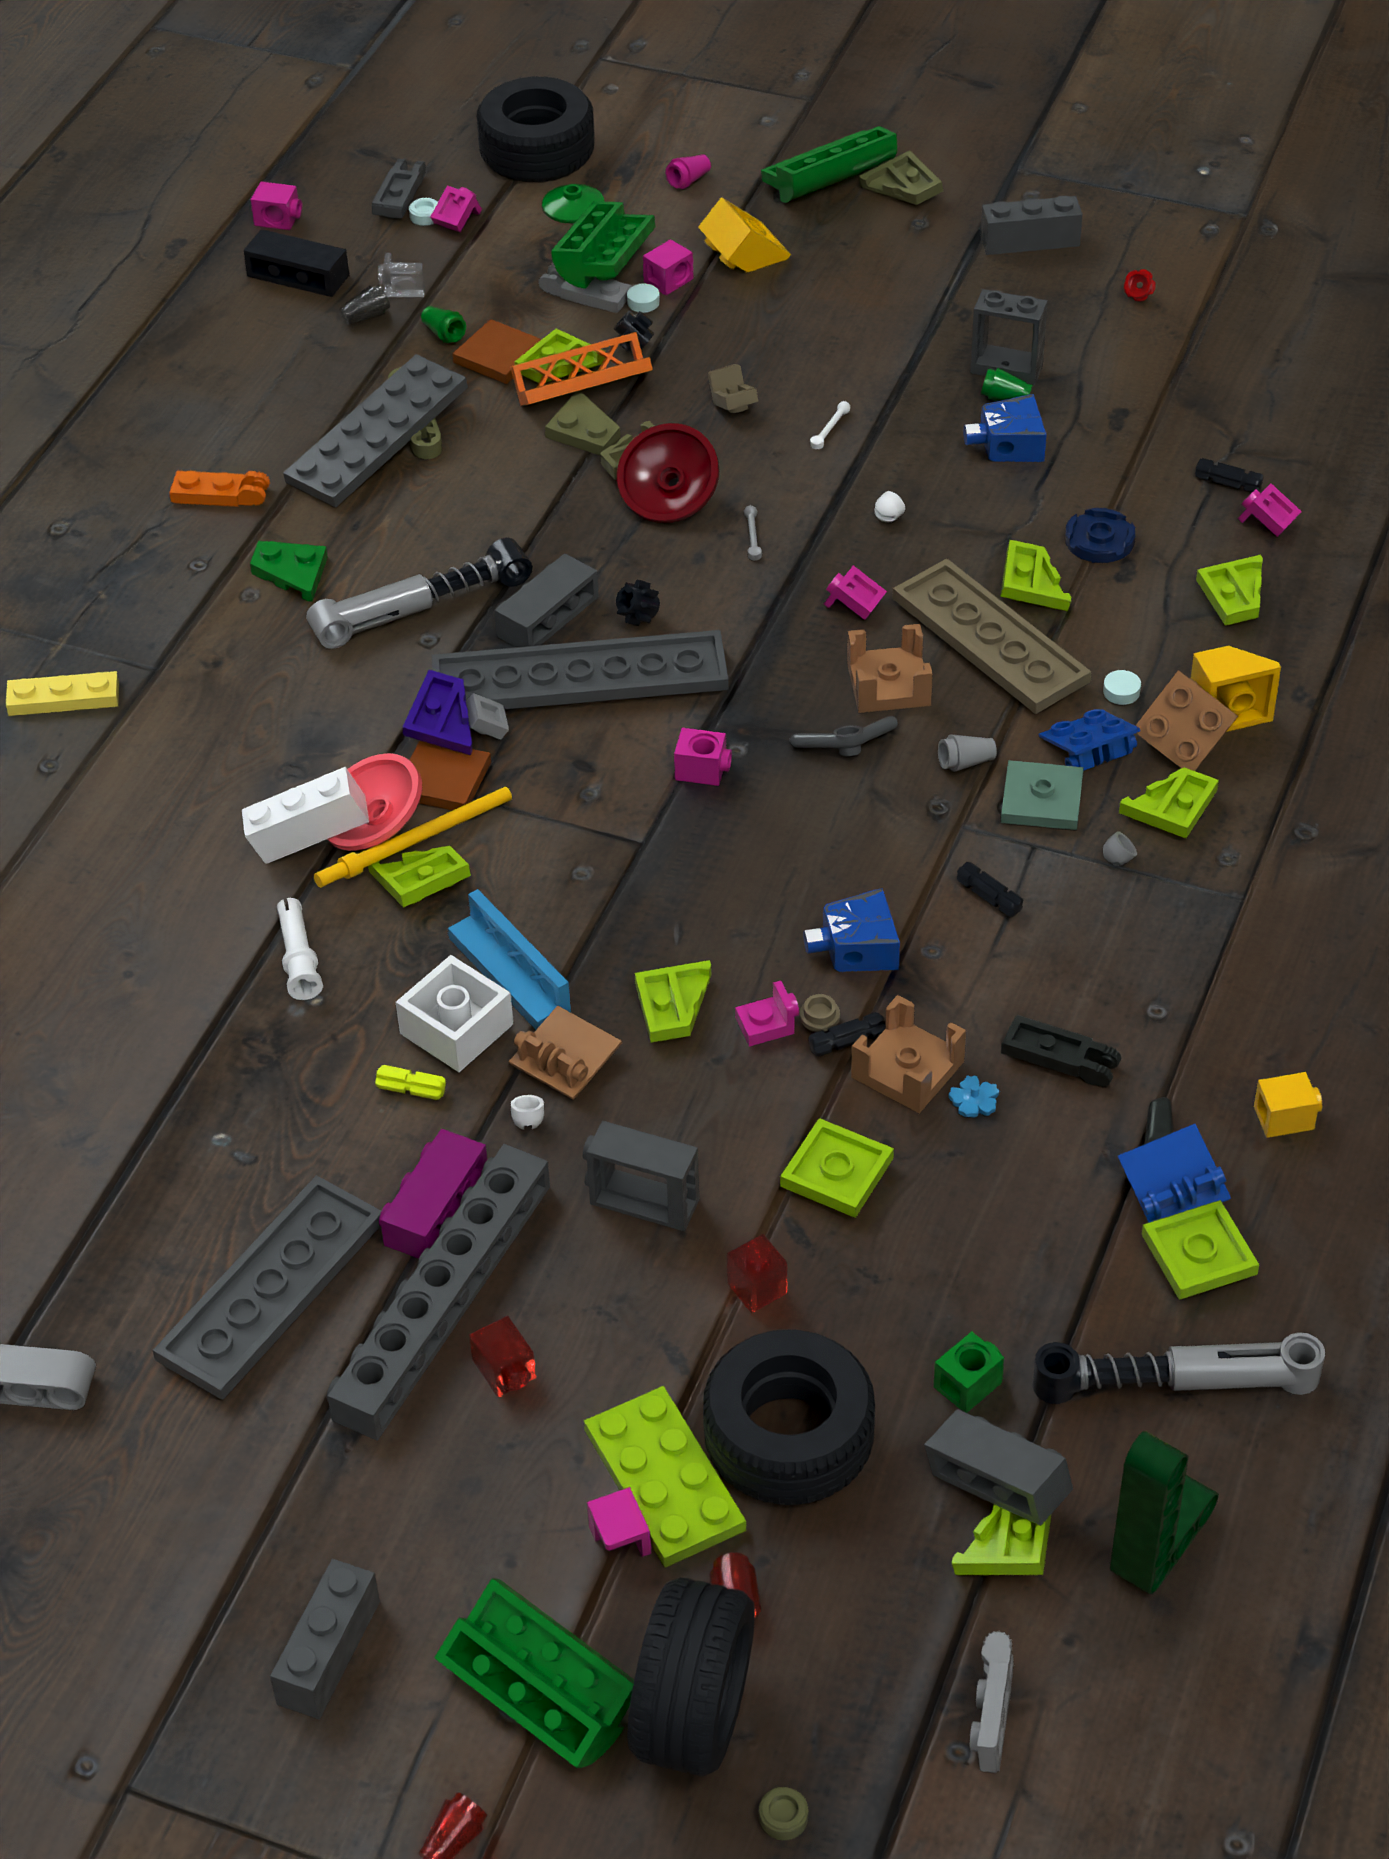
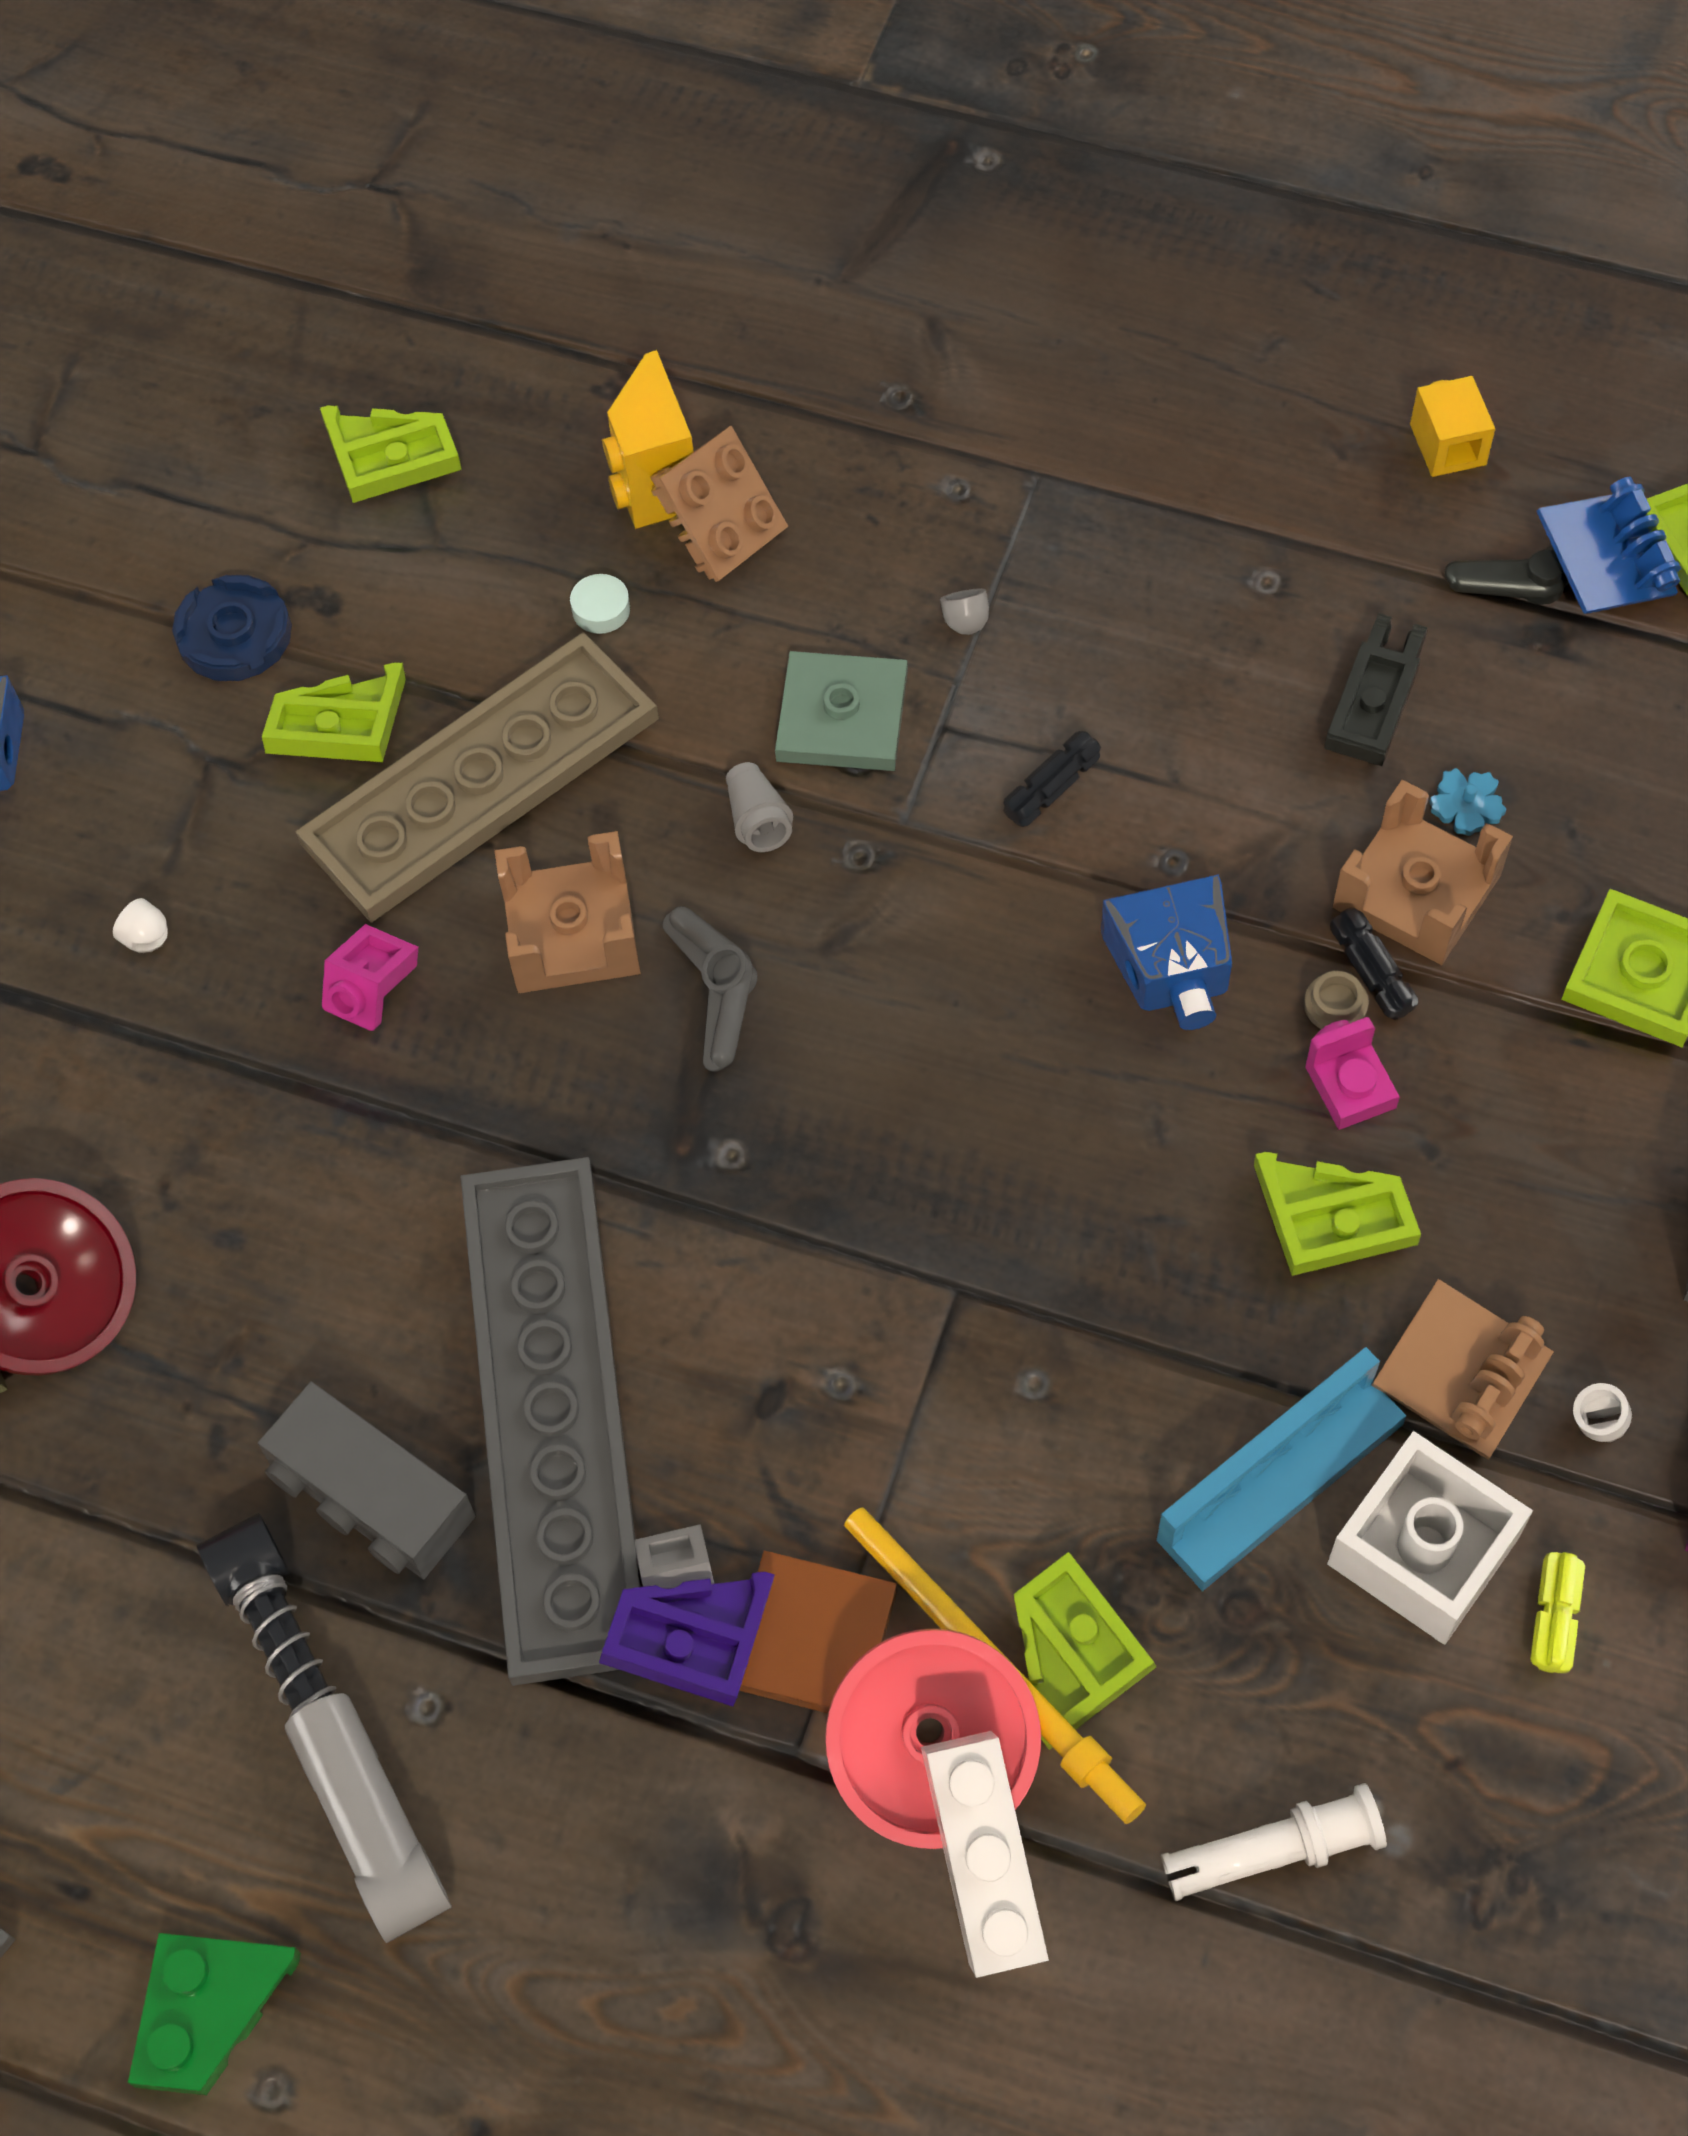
camera: 90 degrees left, 15 degrees up
(637, 602) = (380, 1317): black gear -> none
(701, 756) = (782, 1217): dark pink brick -> none
(754, 551) = (227, 1144): light grey hinge -> none
(1093, 738) = (719, 641): blue hinge -> none
(1173, 802) = (862, 538): lime wing -> none
(1228, 475) = (105, 450): black axle -> none
(1271, 509) = (201, 395): dark pink bracket -> none

